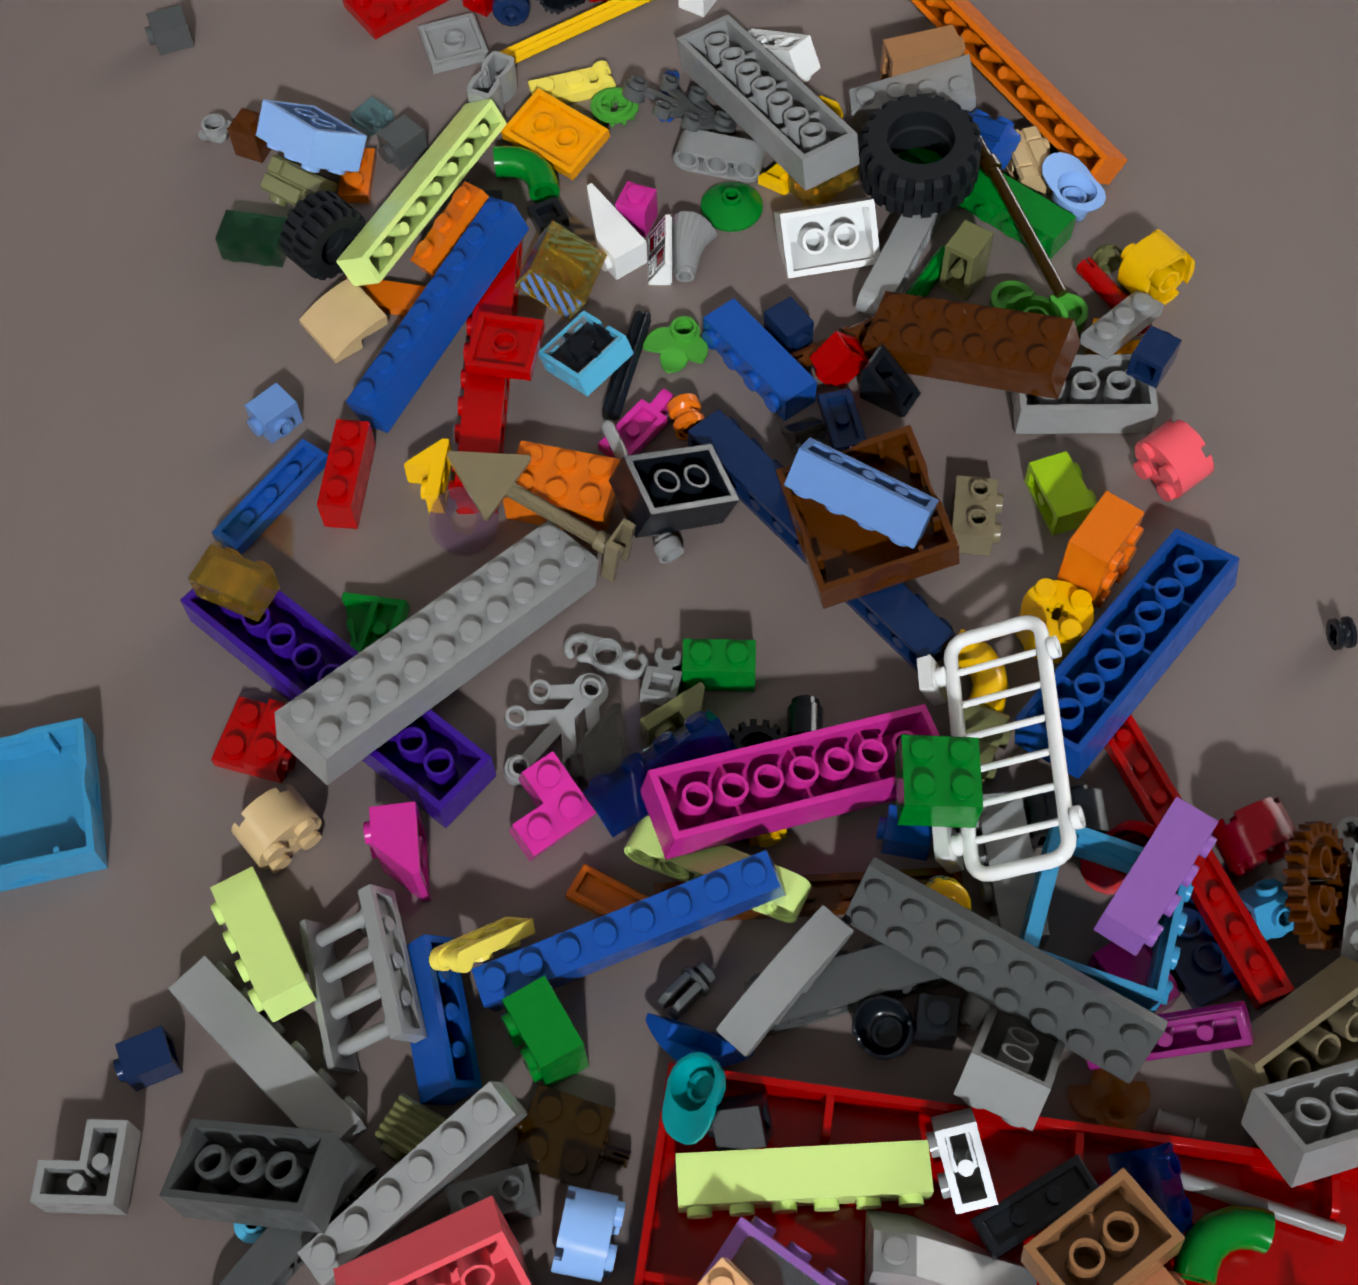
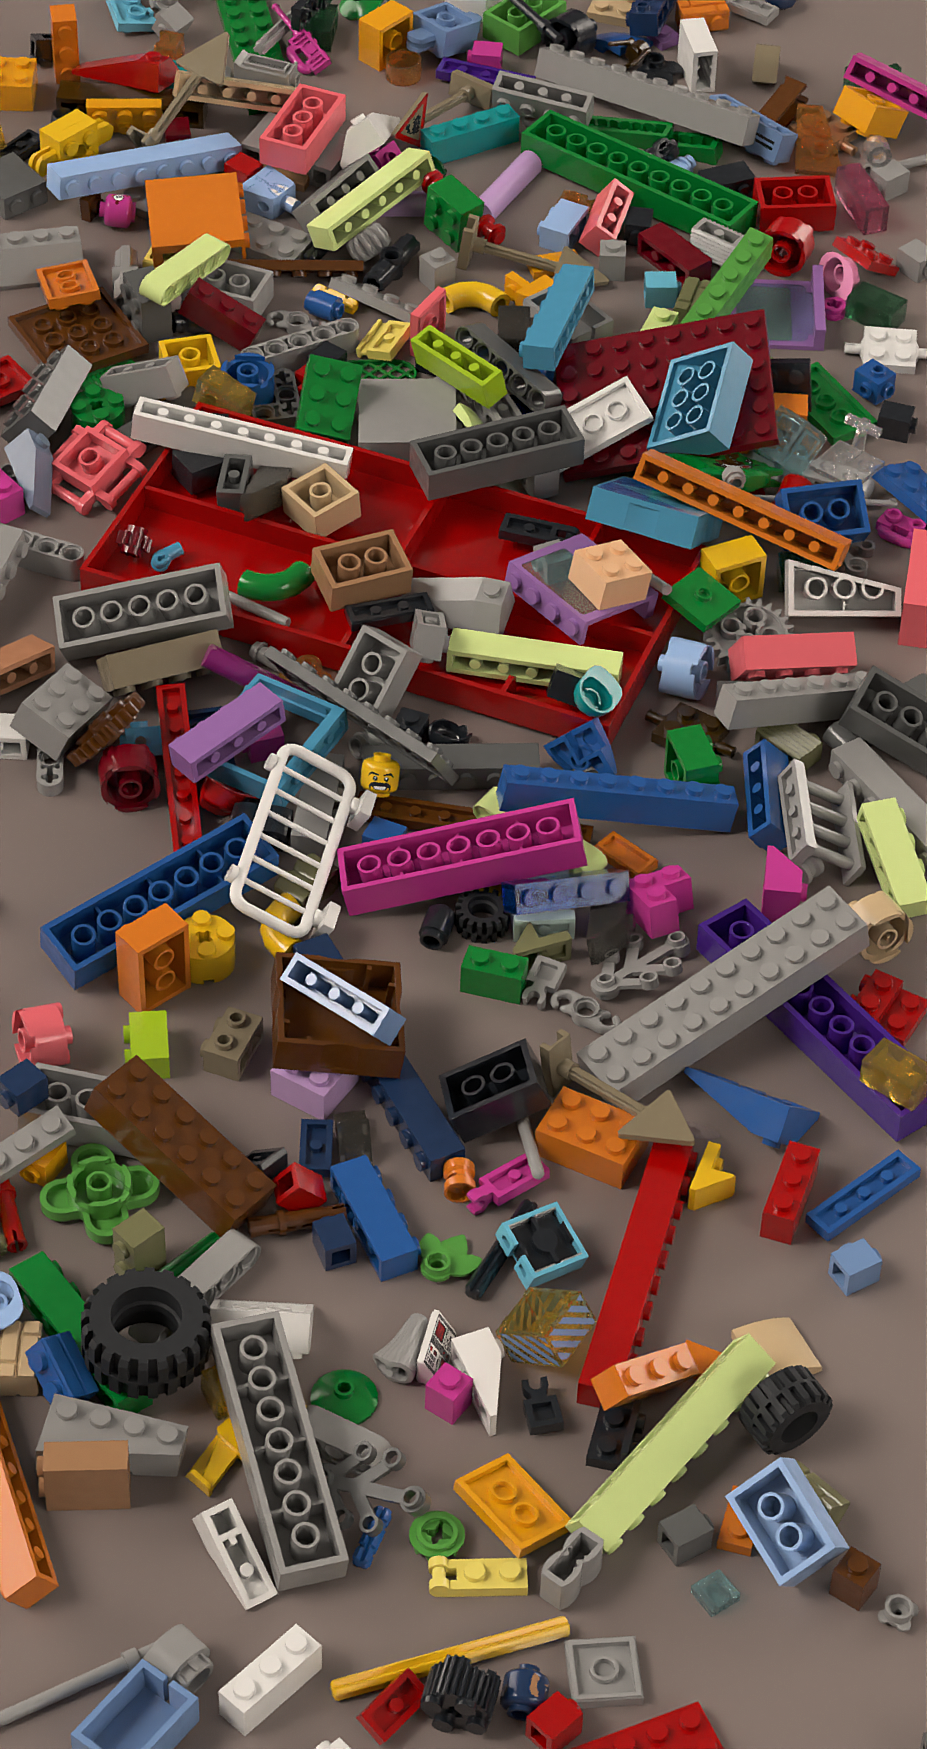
camera: 170 degrees left, 15 degrees down
(251, 238) = (861, 1455): clear green brick -> none
(372, 617) = (782, 1069): green wing -> none
(389, 565) = (767, 1116): none -> blue wedge
(438, 314) = (676, 1297): blue brick -> none
(480, 944) = (727, 820): light yellow plate -> none
(504, 346) = (620, 1246): red plate -> none
(529, 167) = (550, 1471): green cylinder -> none
(784, 980) = (512, 747): light grey slope -> none
(938, 781) = (359, 816): green brick -> none
(992, 167) = (73, 1313): dark brown bar -> none
(1159, 1175) = (309, 602): clear blue bracket -> none

